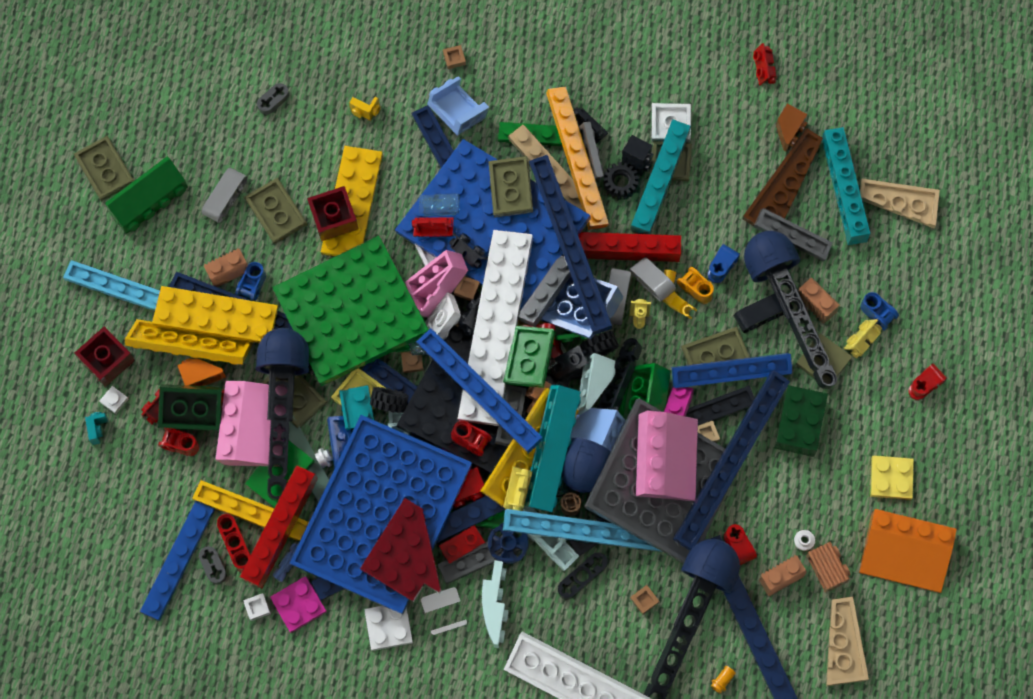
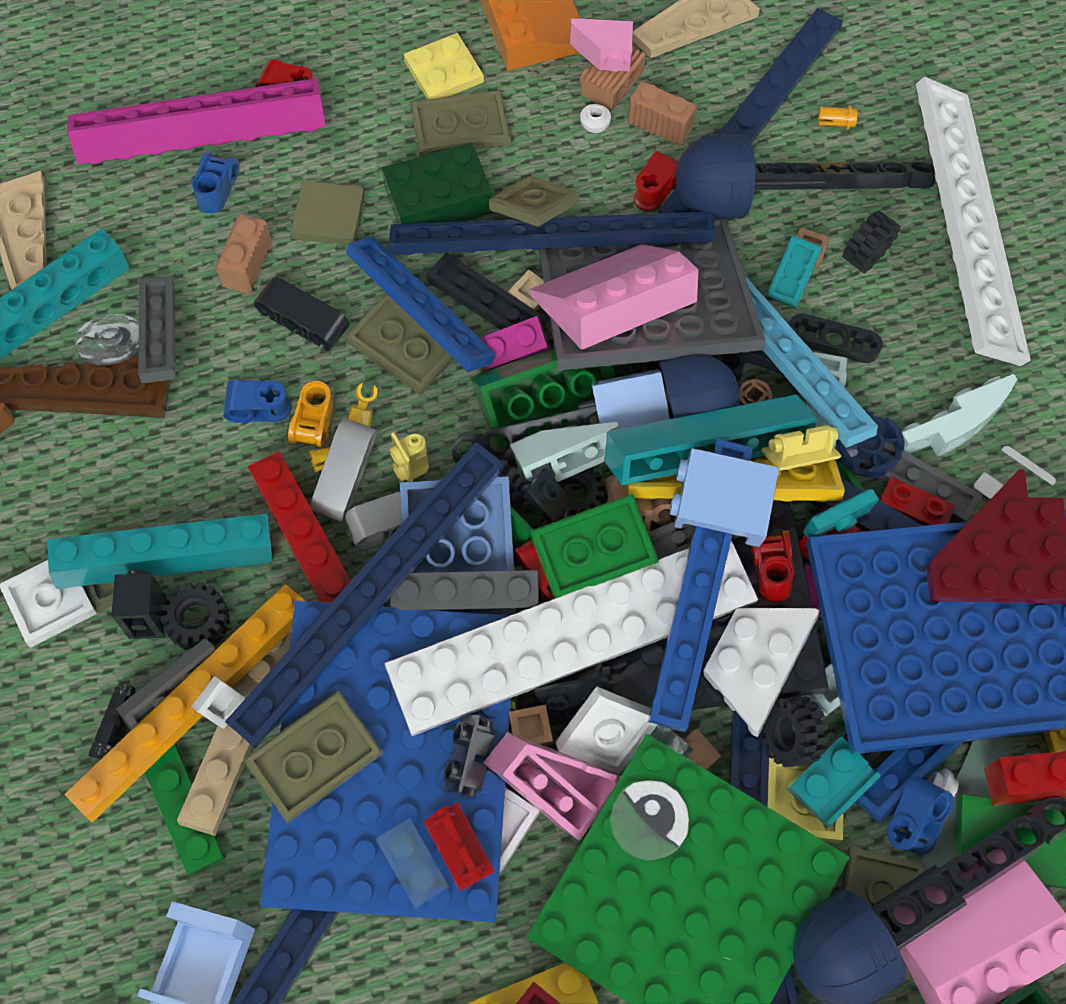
camera: 125 degrees left, 5 degrees down
(317, 433) = (922, 814): none -> blue piece
(390, 306) = (649, 820): none -> clear tile
(430, 399) = (757, 658): none -> white wing
(473, 485) = (842, 515): none -> teal plate
(510, 422) = (725, 495): none -> light blue panel
(564, 163) = (218, 702): none -> white plate
(624, 629) = (871, 241): none -> black tyre
(633, 578) = (794, 271): none -> teal plate
(761, 465) = (534, 201): none -> olive tile
(770, 258) = (217, 326): piece -> none
(803, 210) = (108, 340): none -> clear tile
(840, 562) = (603, 42): none -> bright pink slope
(845, 464) = (460, 121): none -> olive tile
(868, 330) = (265, 183): light yellow hinge -> none
(921, 319) = (196, 121): none -> dark pink brick

